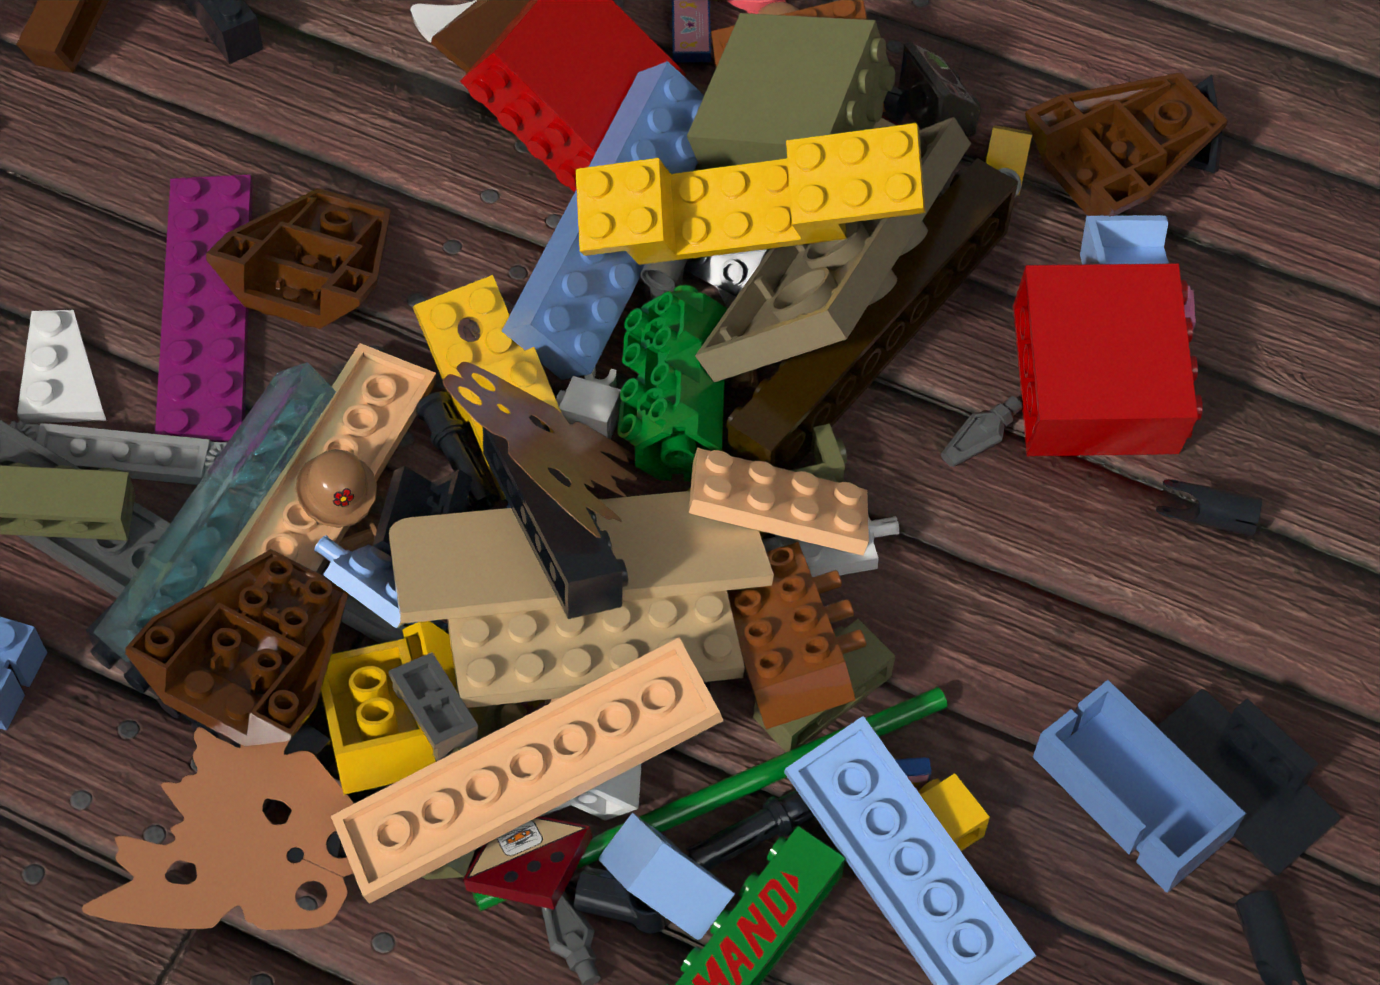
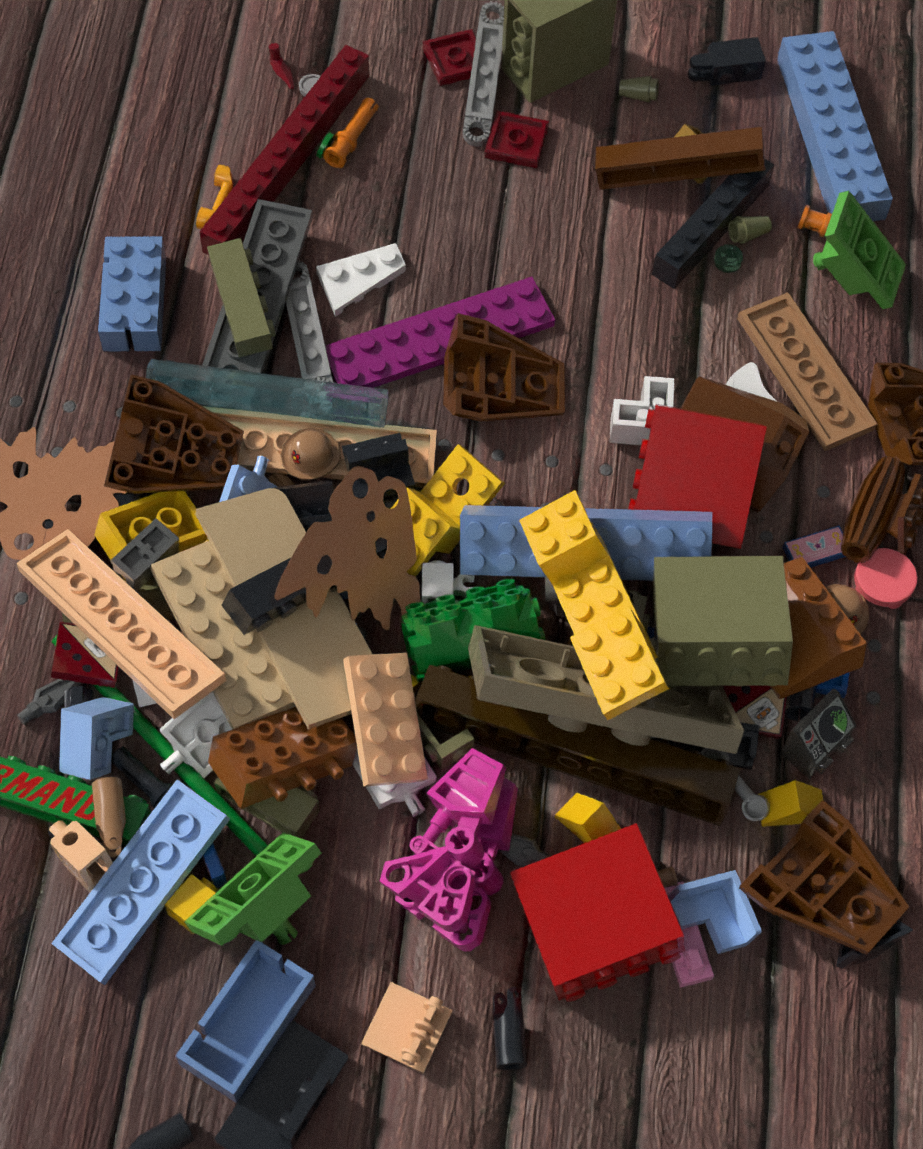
camera: 70 degrees right, 5 degrees up
(394, 413) = (384, 457): none -> black bracket
(445, 118) = (630, 416): none -> white brick
(726, 747) = (193, 734): none -> white plate
(809, 870) = (109, 812): none -> medium nougat piece
(854, 923) = (79, 852): none -> light nougat torso
(932, 440) = (442, 880): none -> dark pink piece
(966, 350) = (587, 818): none -> yellow slope
(976, 715) = (259, 895): none -> bright green brick
(1178, 616) = (407, 1027): none -> light nougat hinge

